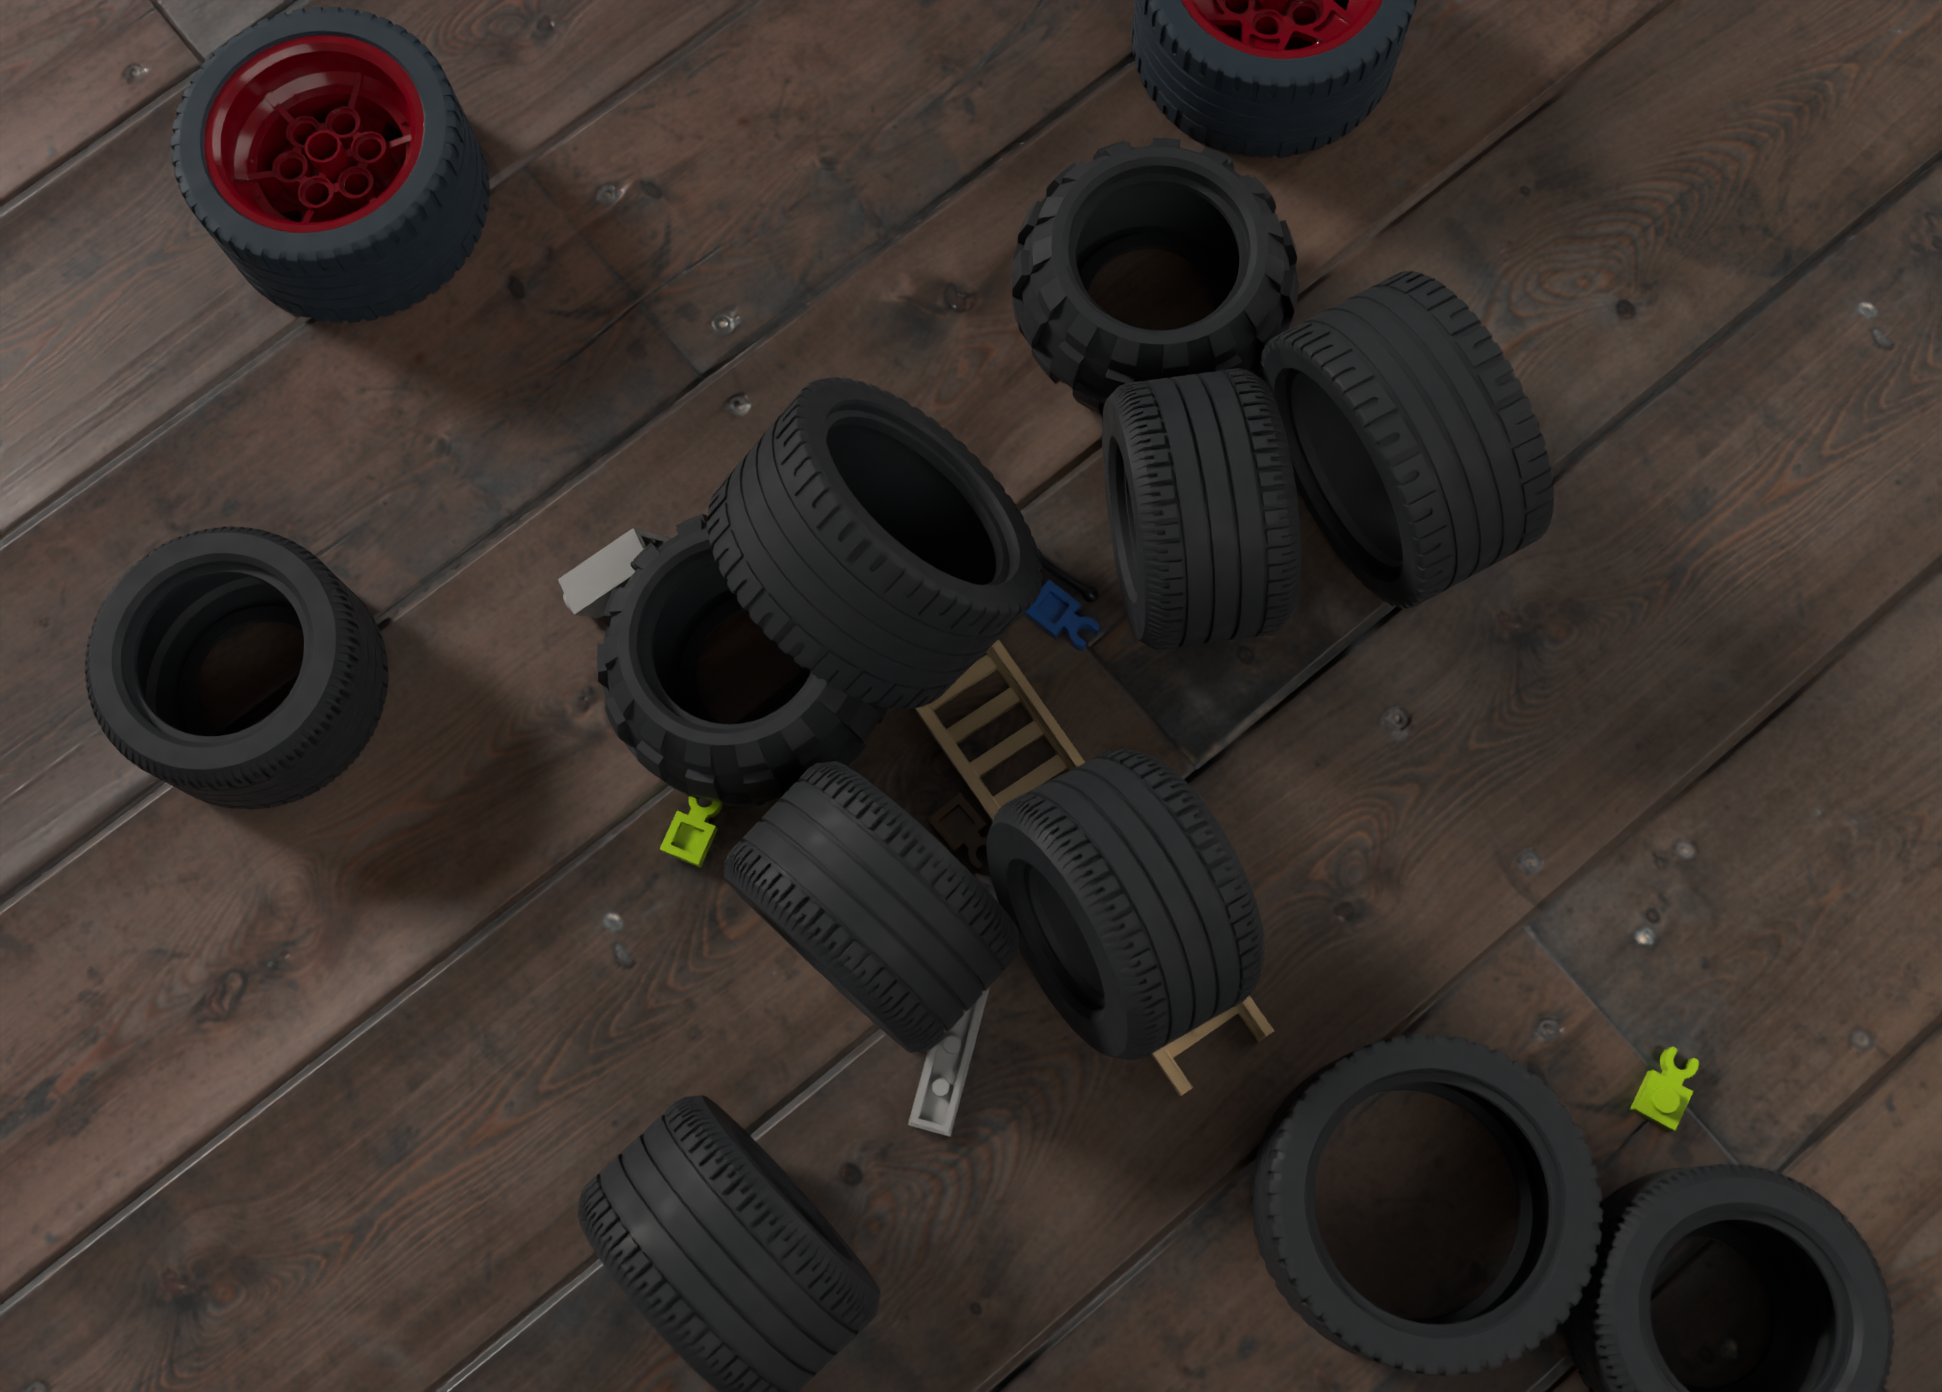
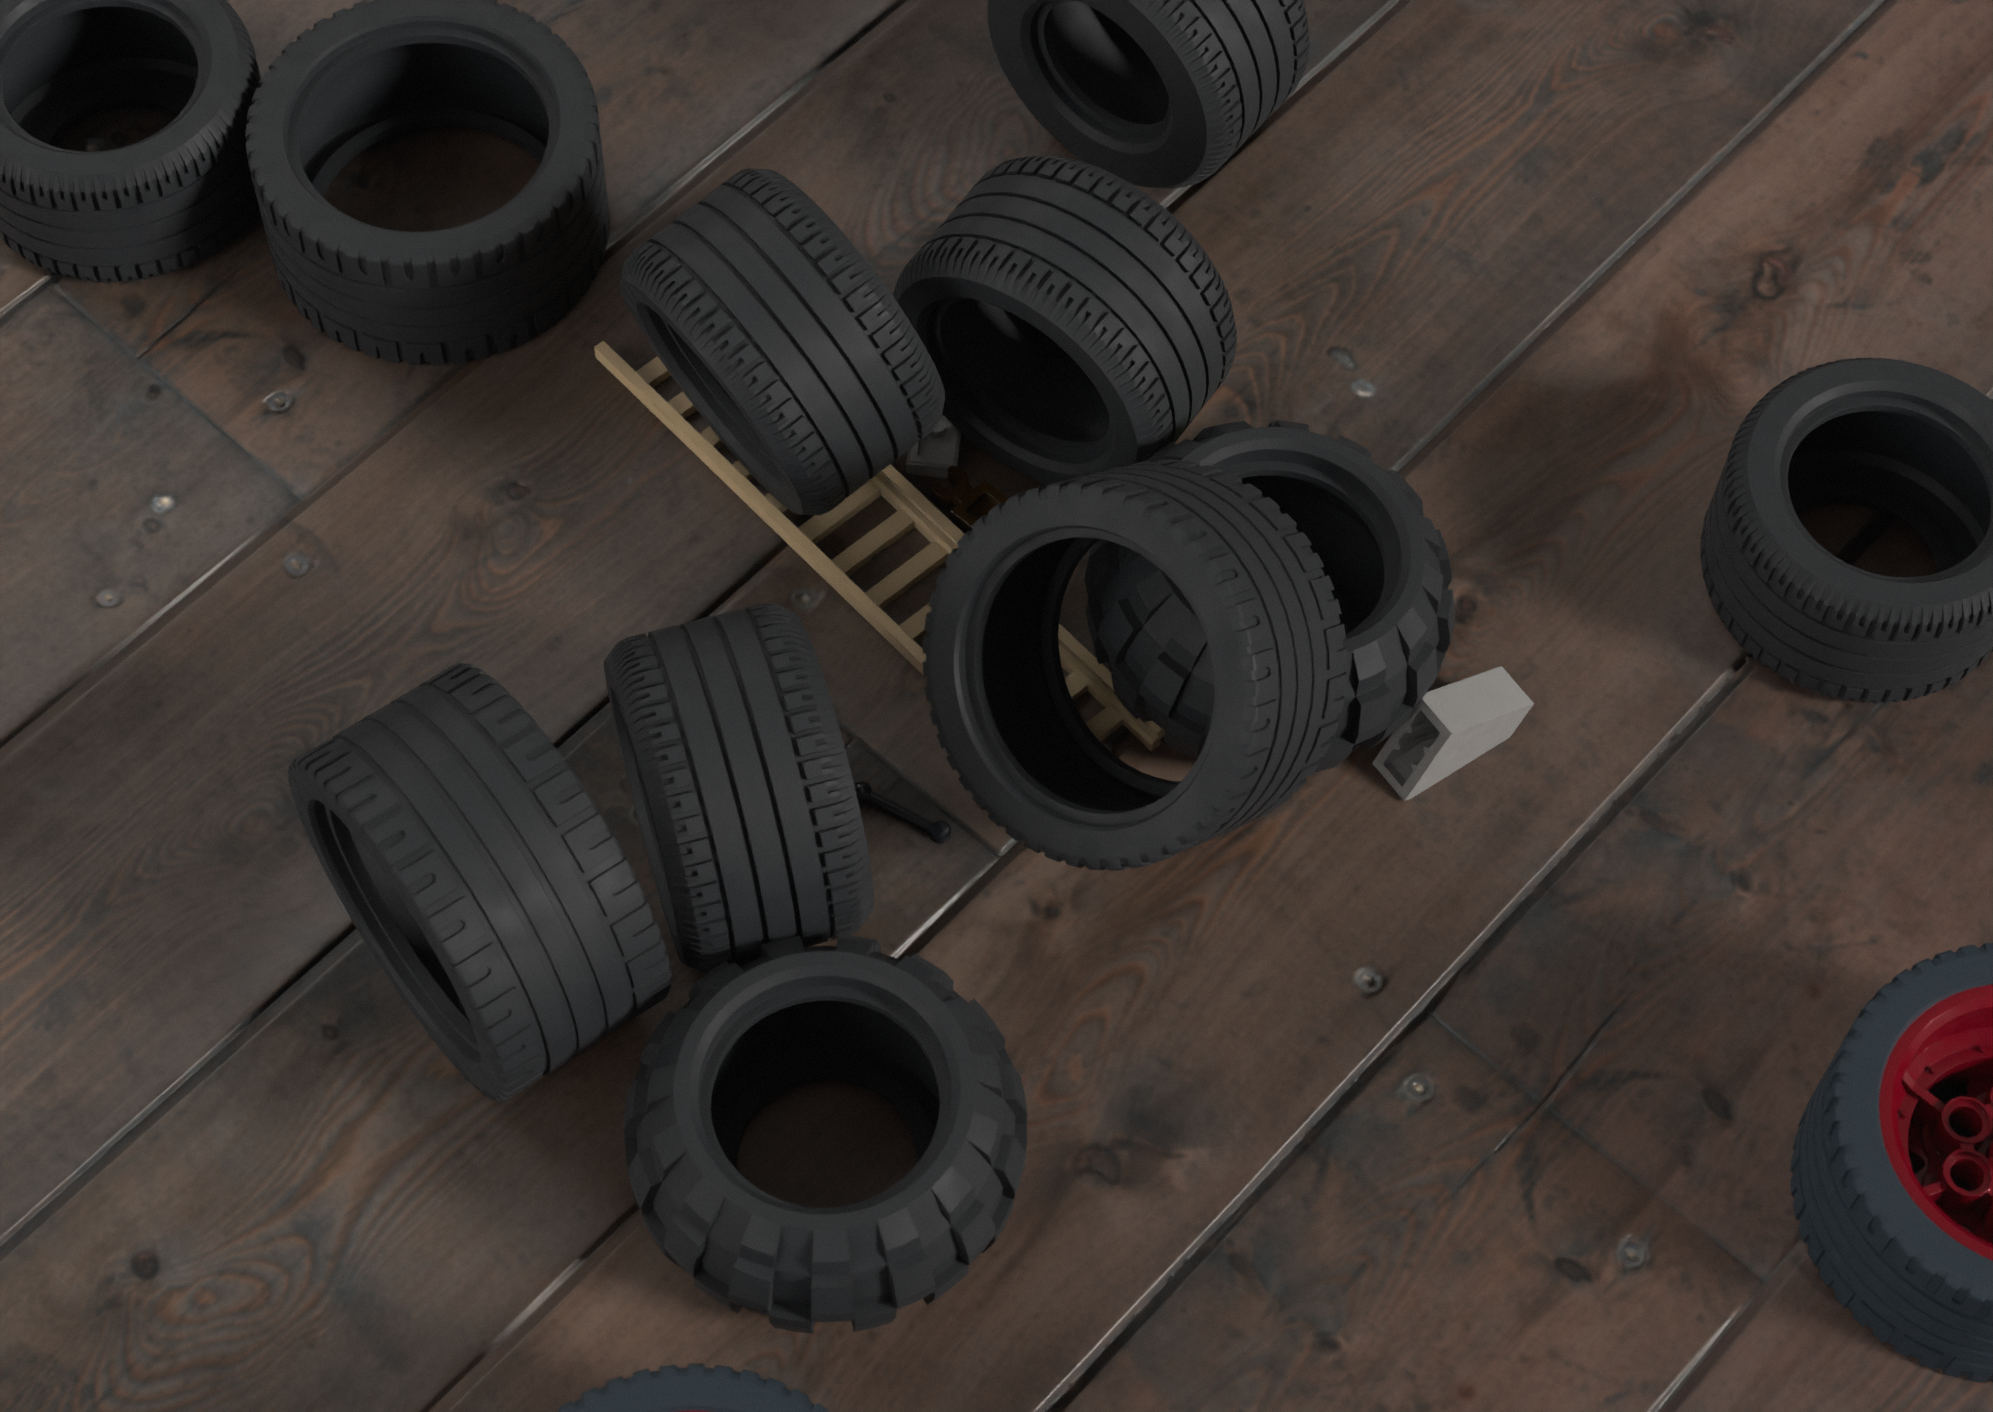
camera: 165 degrees right, 15 degrees down
(1057, 612) = (898, 758): blue plate -> none
(1662, 1095) = (148, 347): lime plate -> none

